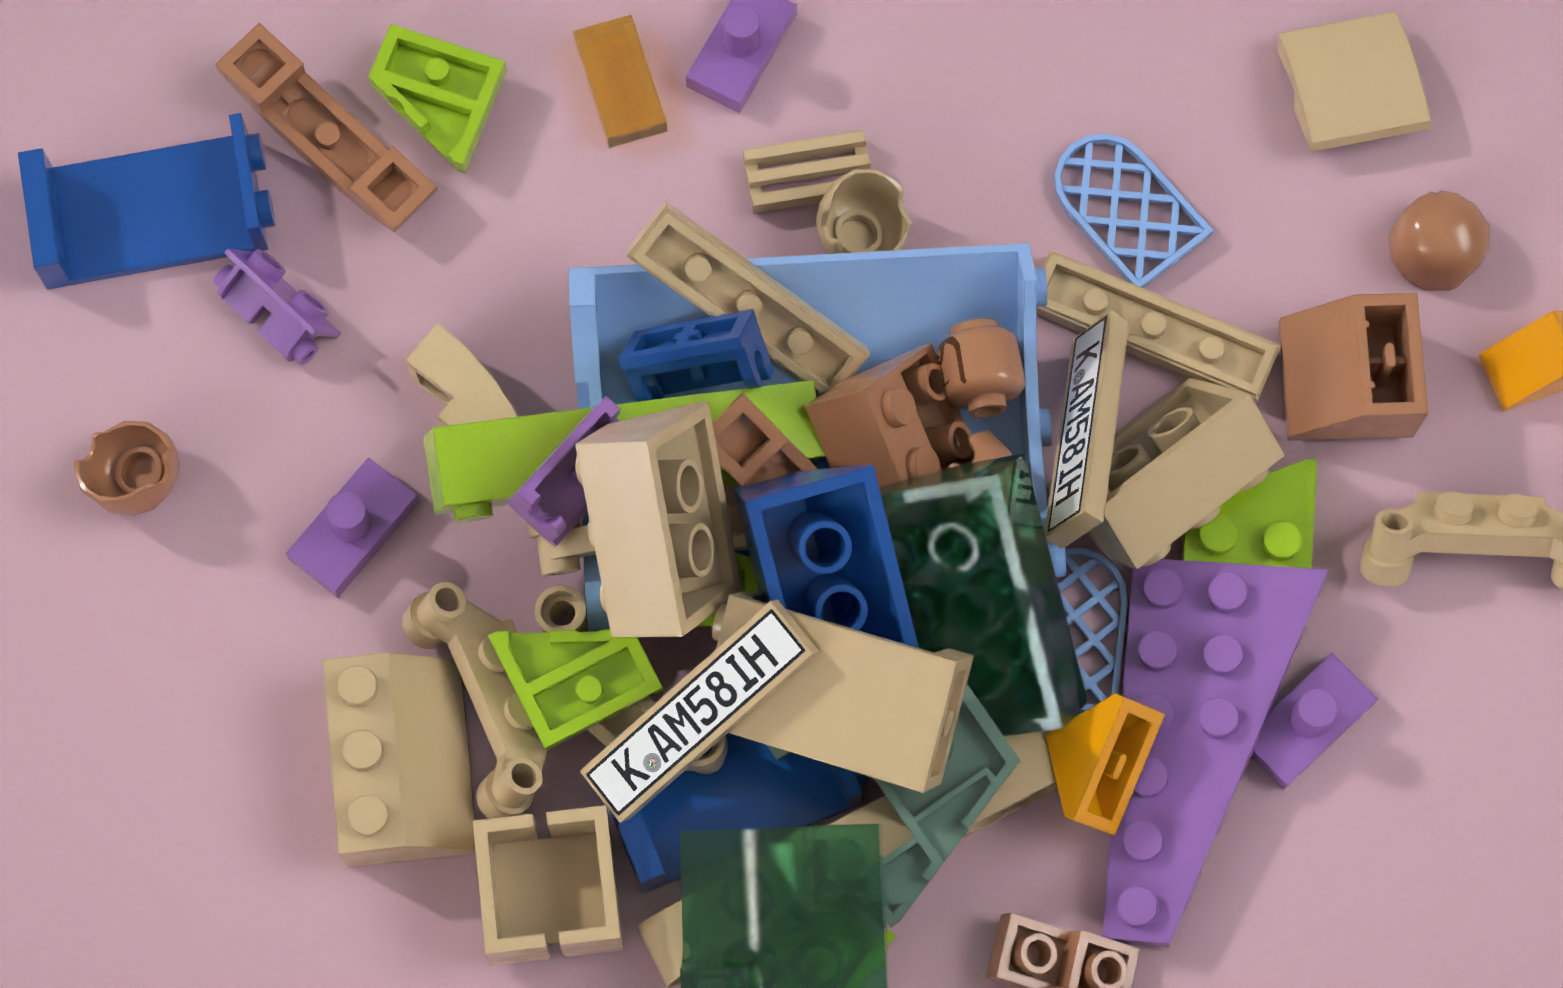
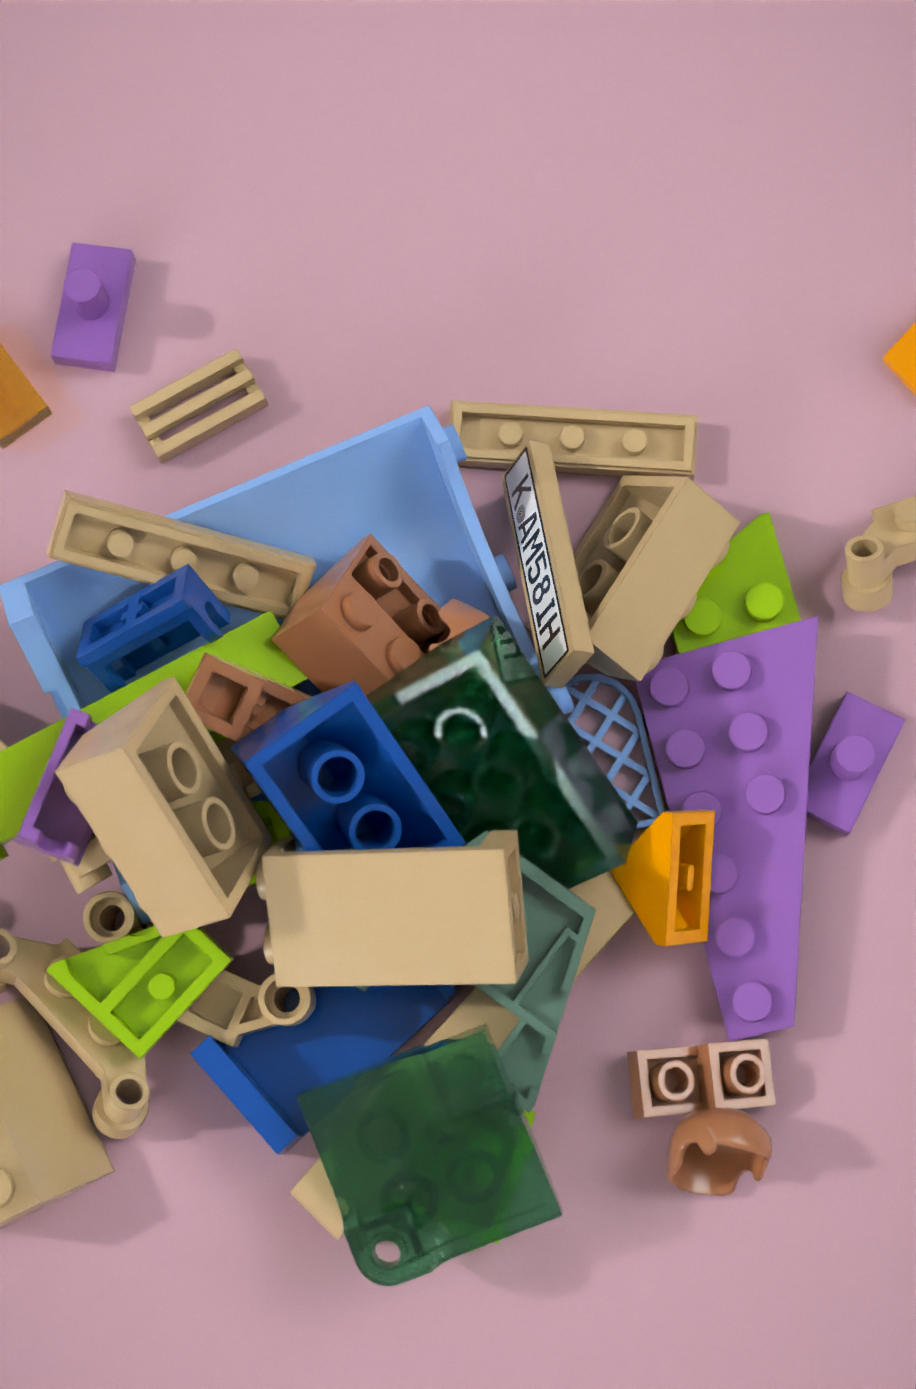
camera: 10 degrees left, 5 degrees up
(547, 887) = (189, 1188): tan piece -> none
(699, 710) = (273, 975): tile -> none
(863, 214) = (263, 430): tan hair -> none
(981, 367) = (425, 539): nougat head -> none
(1146, 166) = (513, 289): light blue window -> none
(1354, 81) = (677, 140): tan slope -> none
(1354, 368) = (774, 414): nougat slope -> none
(1439, 240) = (809, 263): nougat hair -> none

